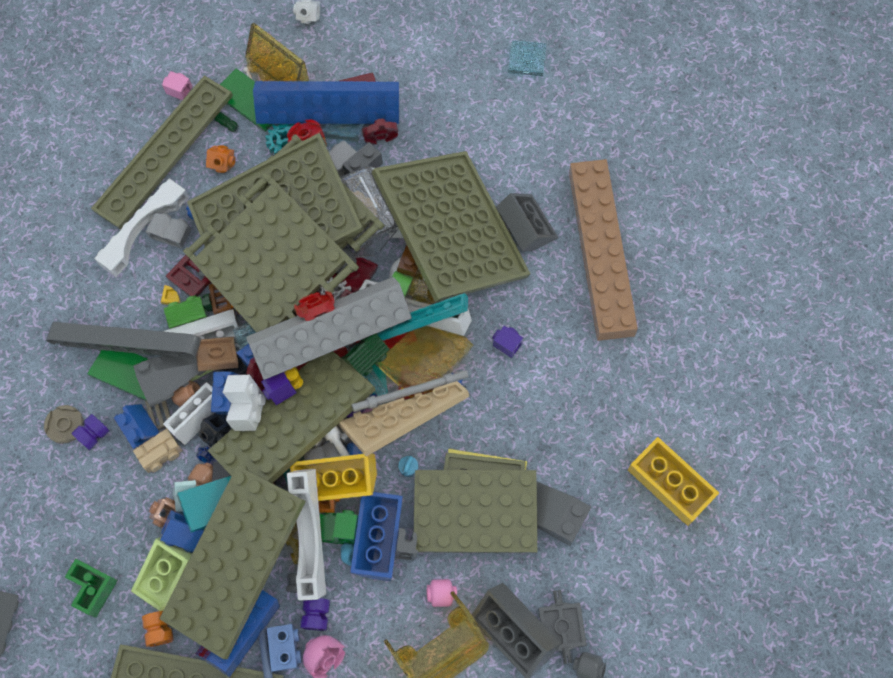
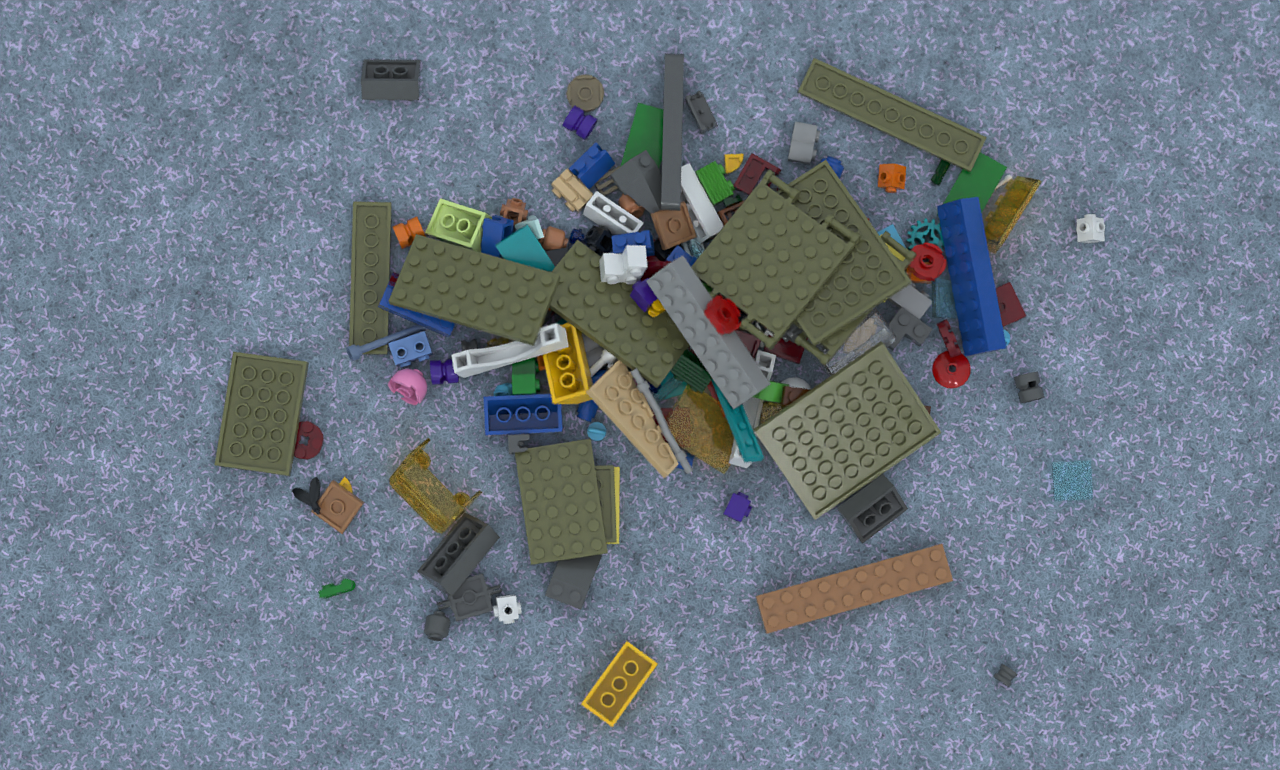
camera: 75 degrees right, 15 degrees up
(94, 590) = (437, 167): green brick -> none
(115, 317) = (701, 112): none -> dark grey hinge
(116, 253) = (767, 97): white arch -> none
(177, 85) = (974, 109): bright pink brick -> none
(385, 470) = (587, 410): none -> blue brick
(410, 146) = (951, 379): none -> red dish
(437, 77) = (1030, 394): none -> dark grey wheel
(439, 592) = (482, 481): bright pink head -> none
(580, 586) = (503, 602): none -> white brick
(697, 134) = (1005, 675): none -> dark grey wheel

